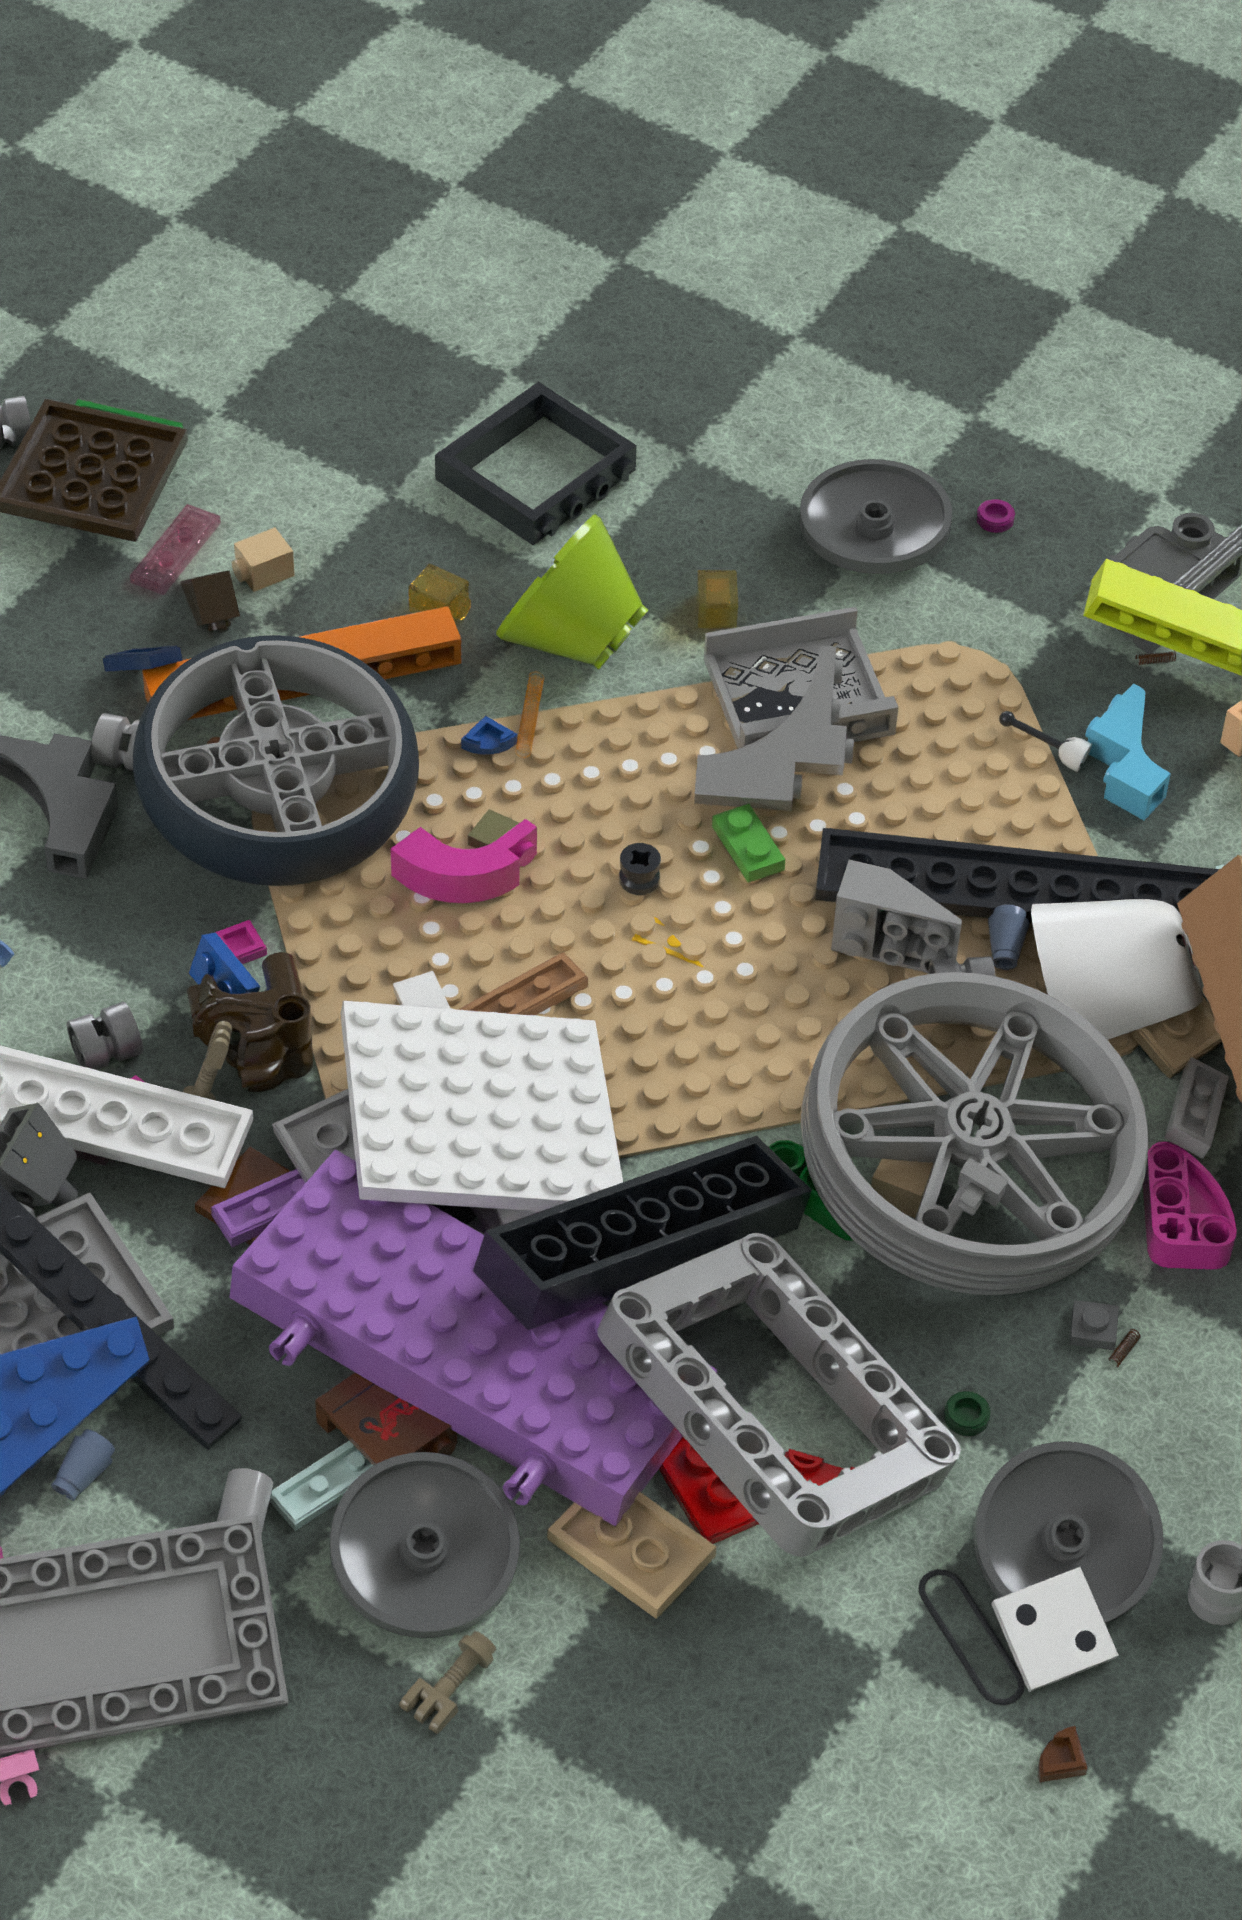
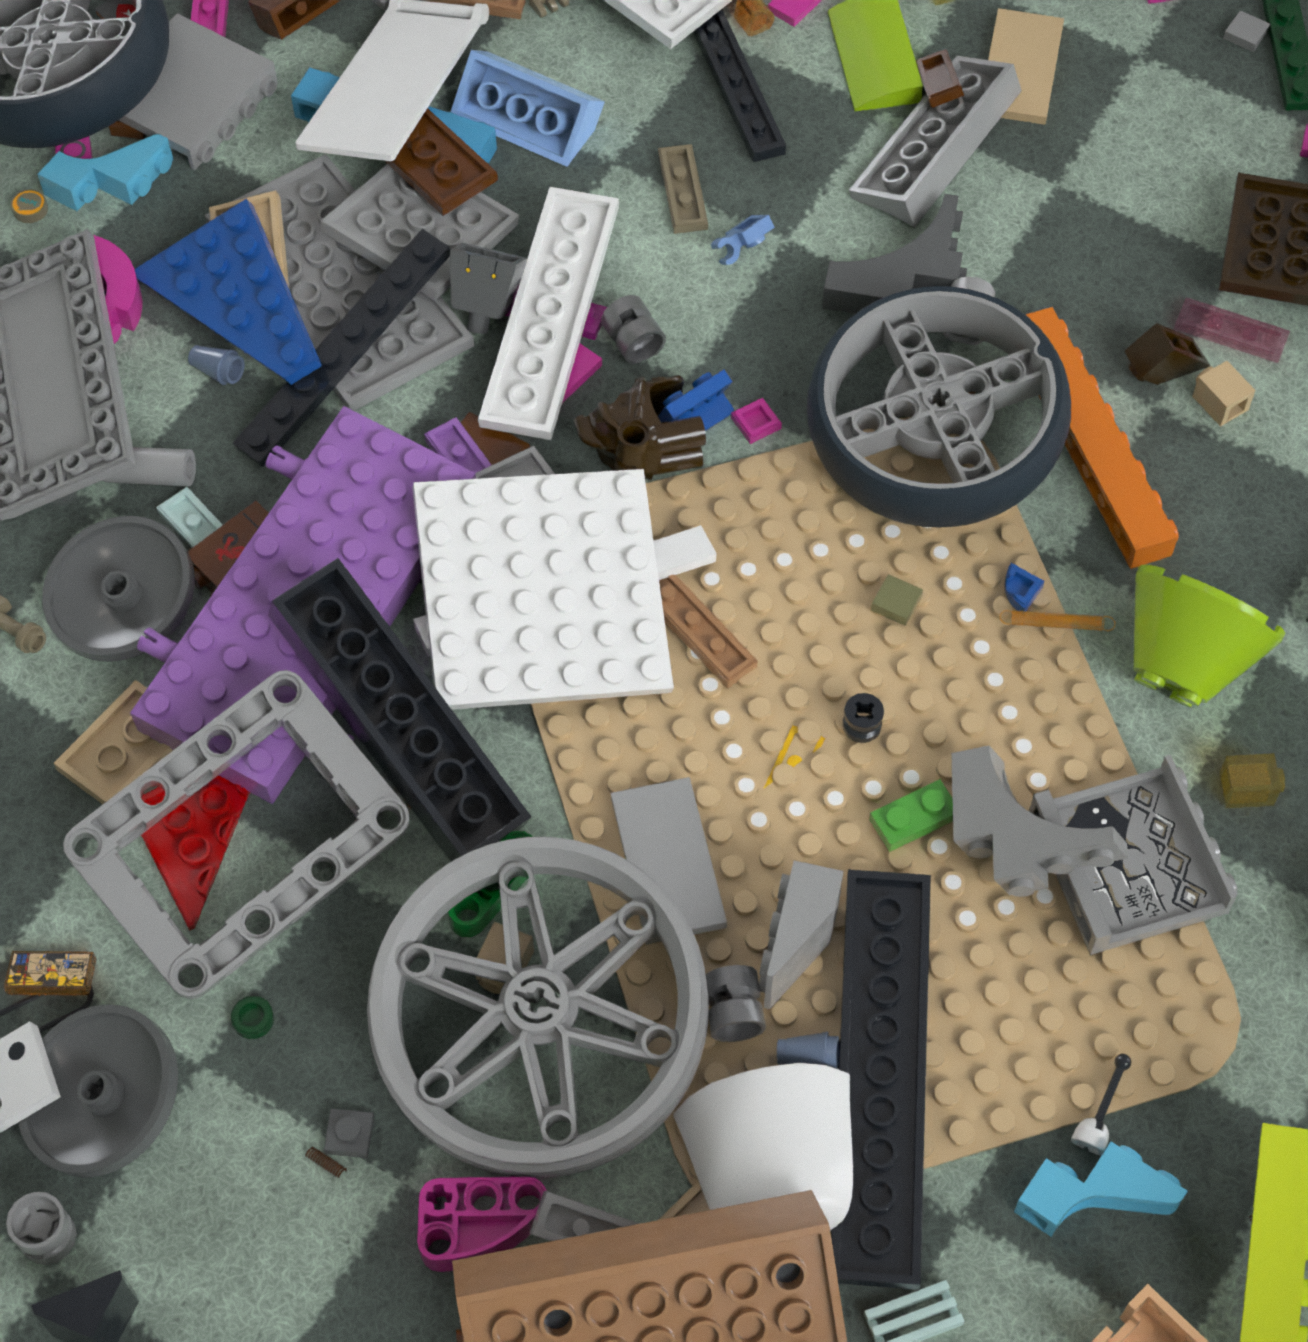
camera: 90 degrees right, 10 degrees up
(142, 658) = (1067, 307): dark blue tile -> none
(213, 1061) = (581, 399): dark tan hinge -> none
(439, 589) = (1203, 537): clear yellow brick -> none
(463, 874) = (843, 594): dark pink arch -> none
(777, 1039) = (667, 841): none -> light grey tile
(920, 1605) = (50, 973): none -> tile
(979, 1185) = (439, 988): light grey tile -> none

